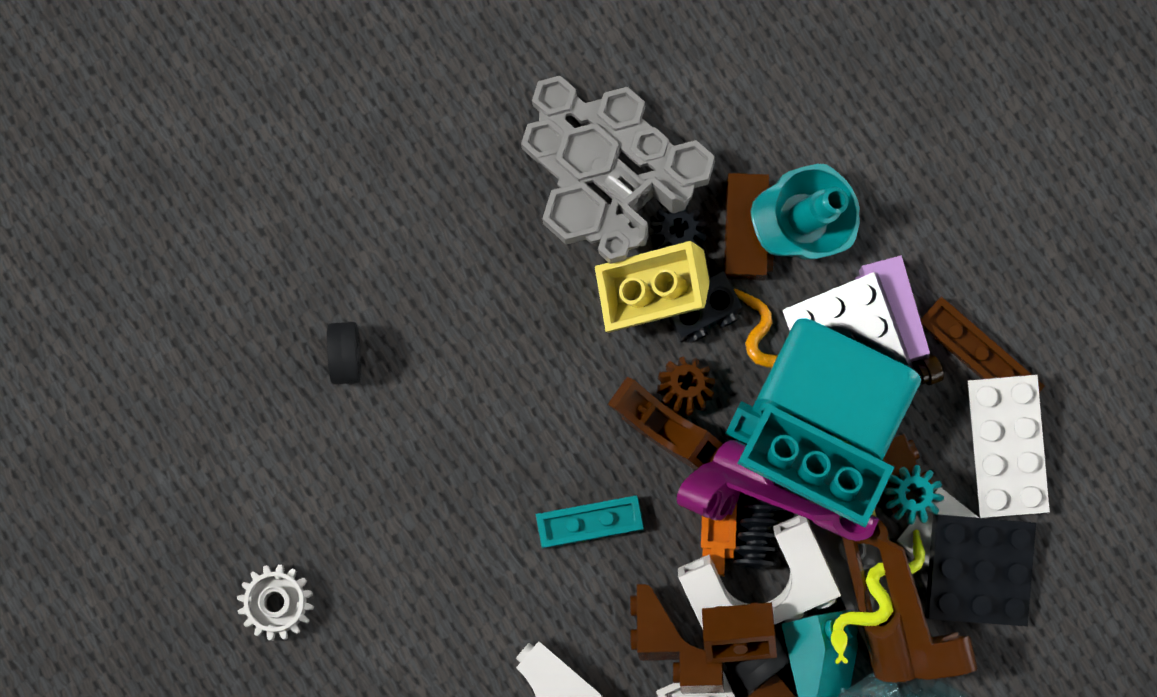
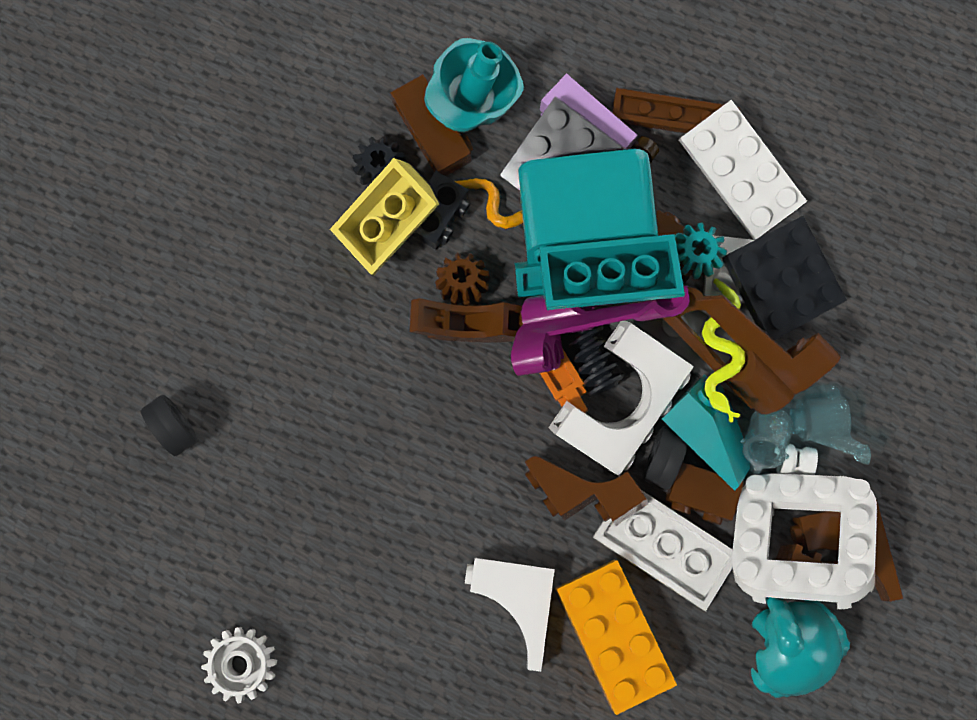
camera: 35 degrees left, 0 degrees up
(589, 522) = (454, 436): teal plate -> none
(592, 155) = (272, 144): light grey piece -> none
(739, 632) = (634, 447): reddish brown brick -> none

